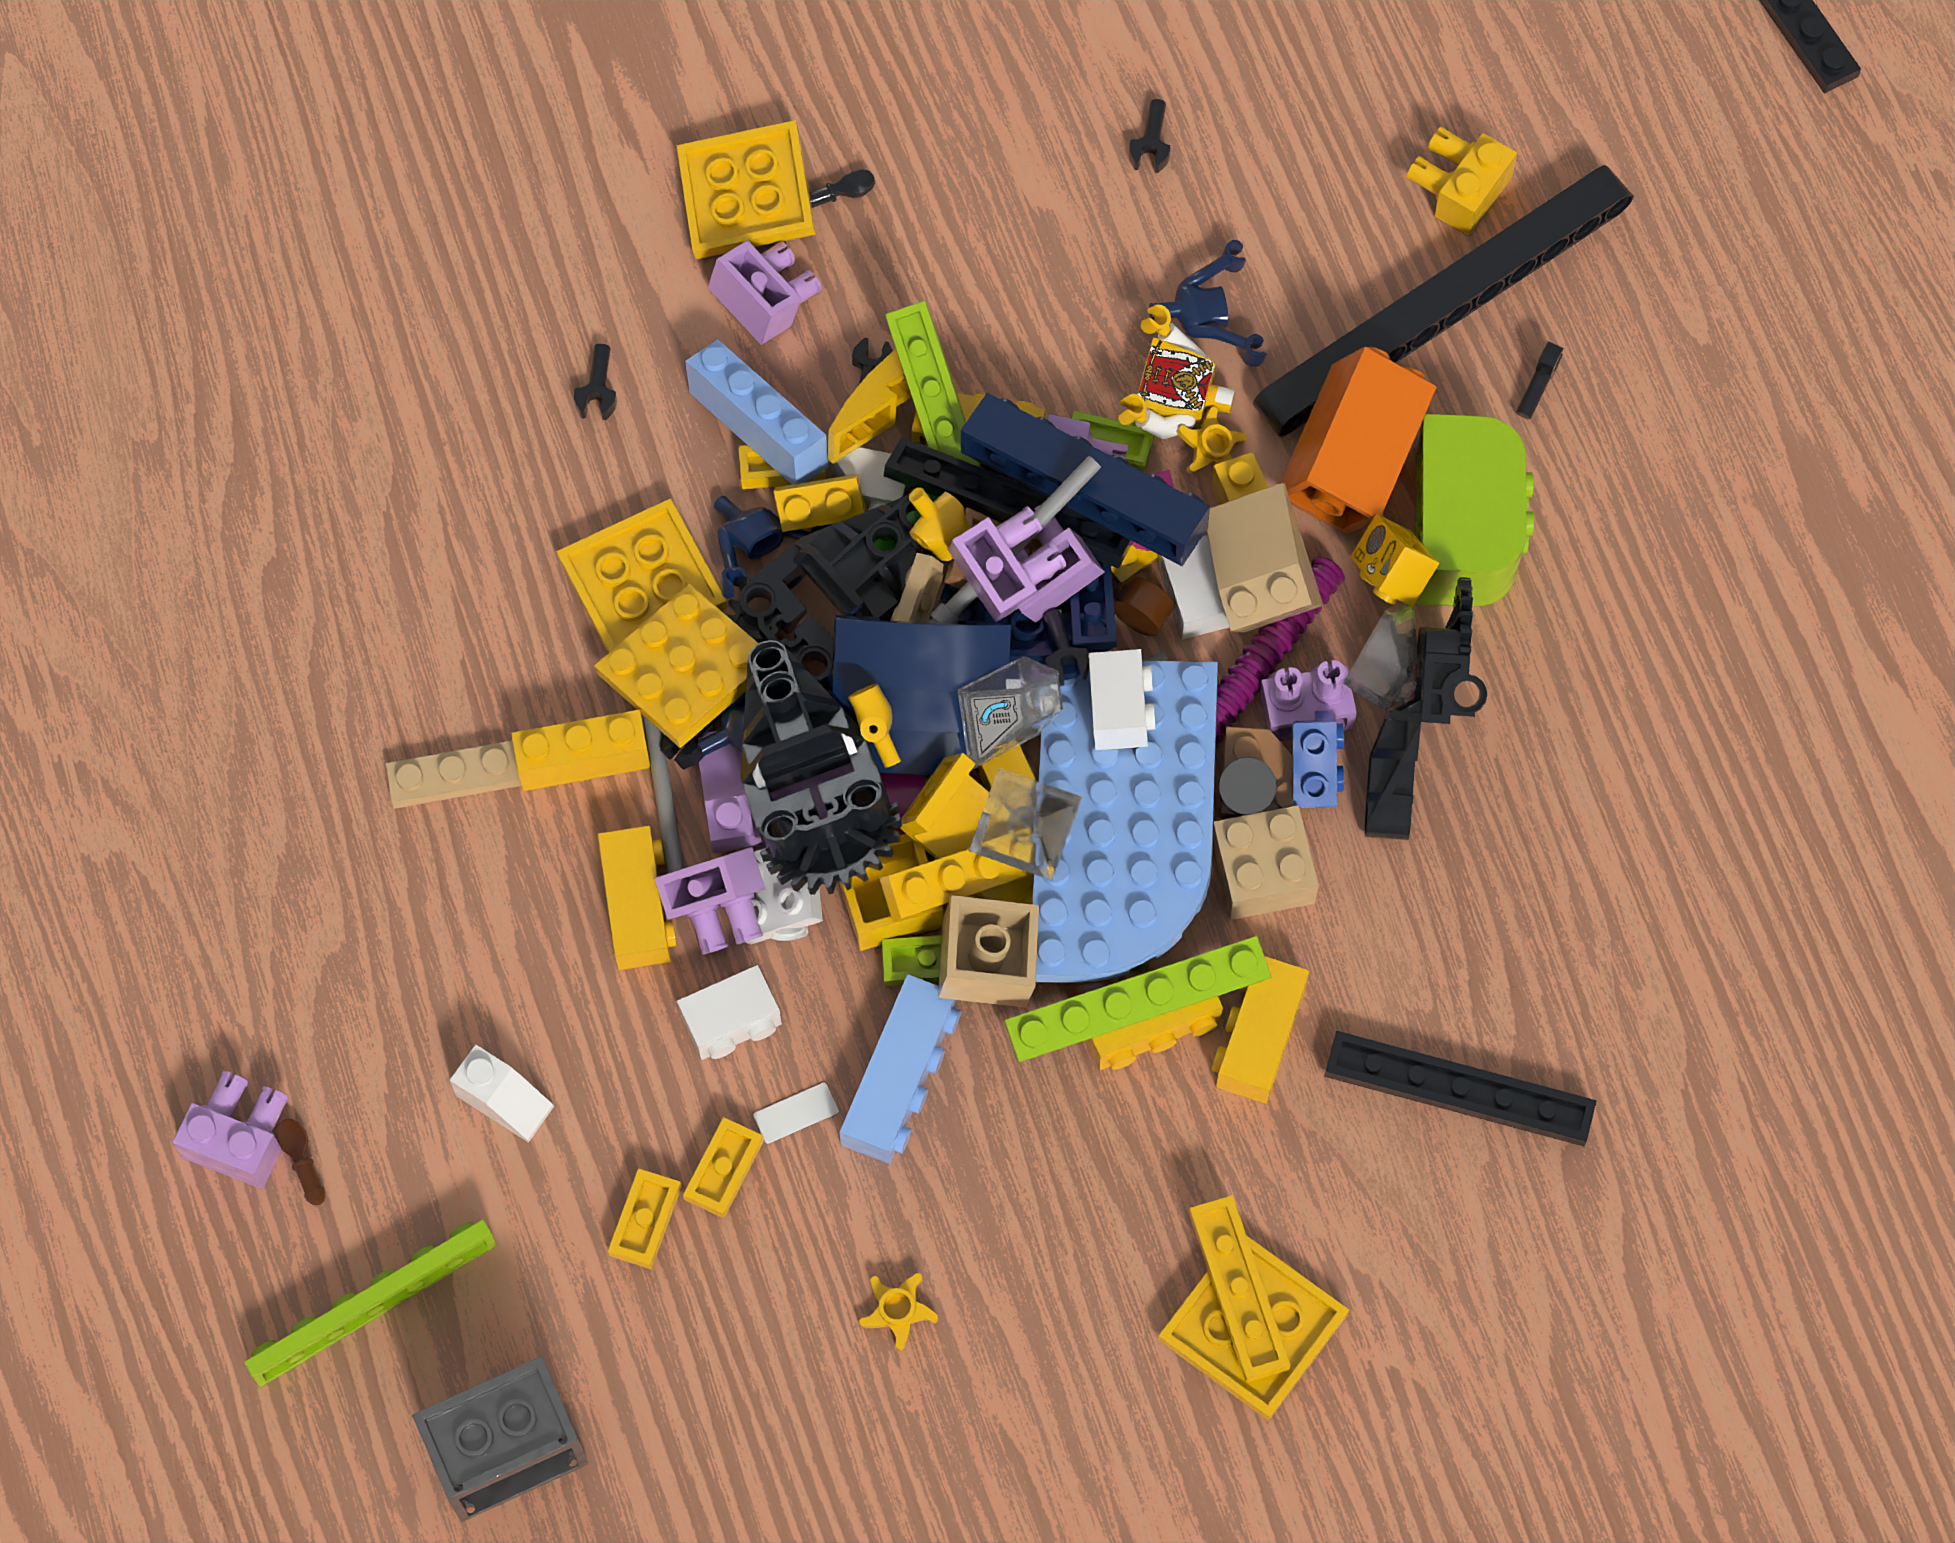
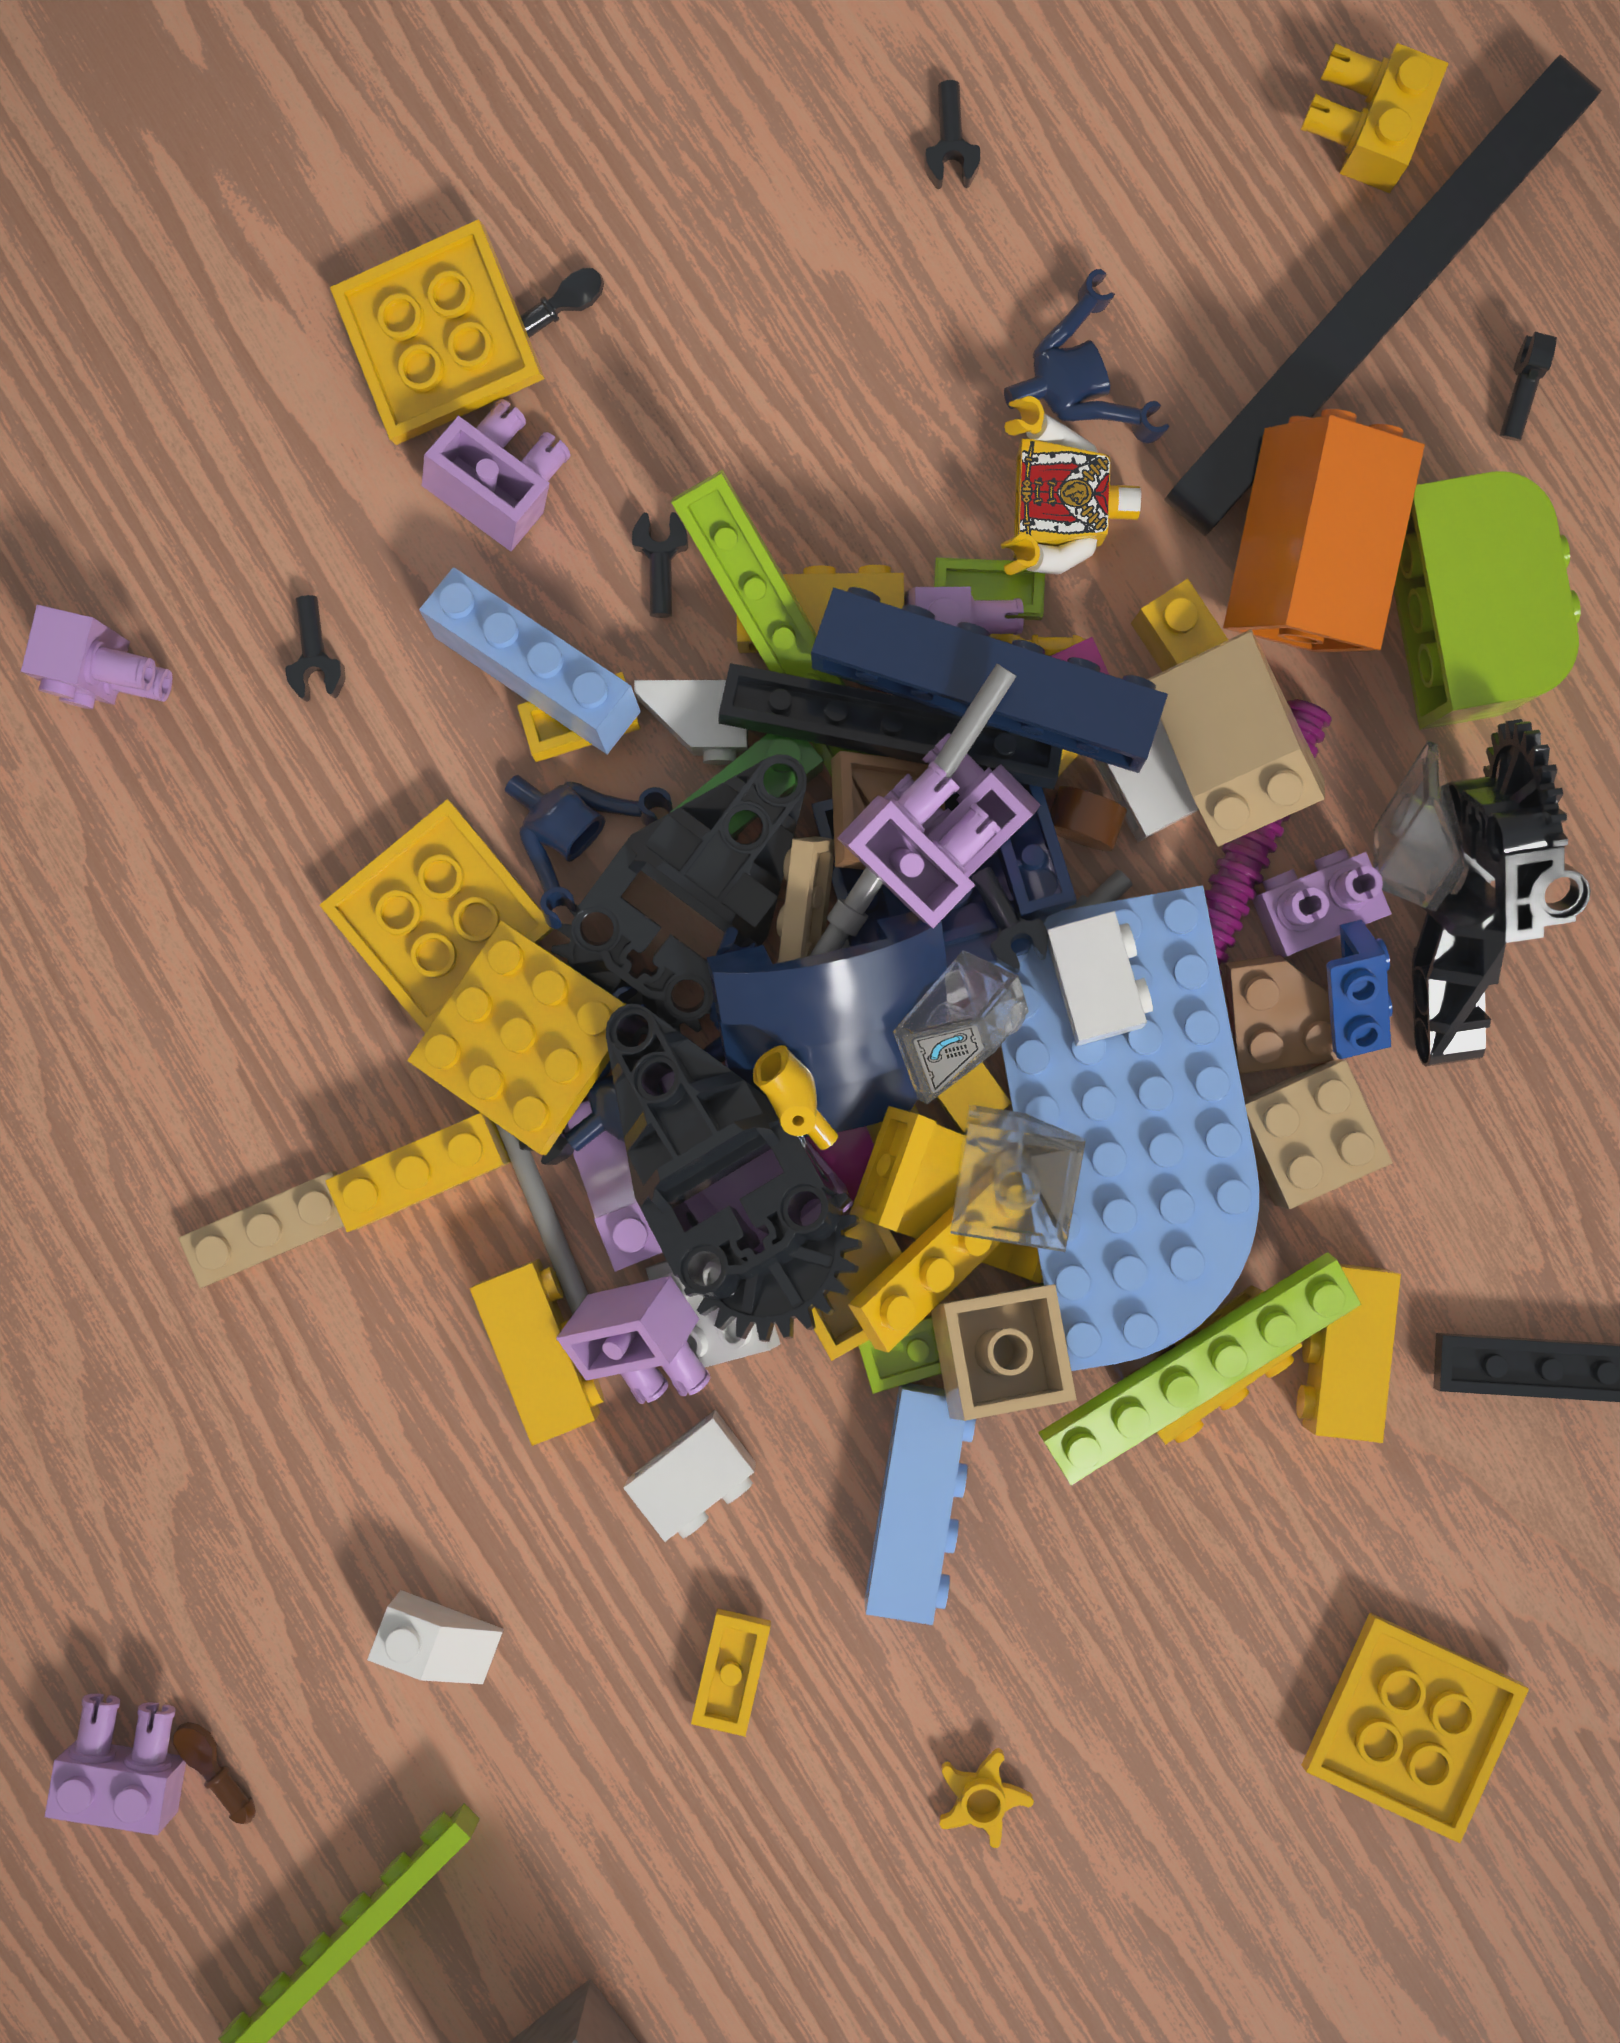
camera: 15 degrees left, 20 degrees up
(434, 353) = (88, 661): none -> lavender brick
(644, 1218) = (650, 1758): yellow plate -> none
(795, 1113) = (800, 1572): white sticker -> none
(819, 502) = (642, 769): yellow plate -> none
(869, 408) = (676, 625): yellow slope -> none
(938, 523) = (818, 798): yellow piece -> none
(1211, 442) = (1123, 567): yellow animal -> none
(1239, 1288) = (1398, 1705): yellow plate -> none
(1247, 786) = (1275, 1047): dark grey piece -> none
(1393, 561) = (1414, 708): yellow brick -> none

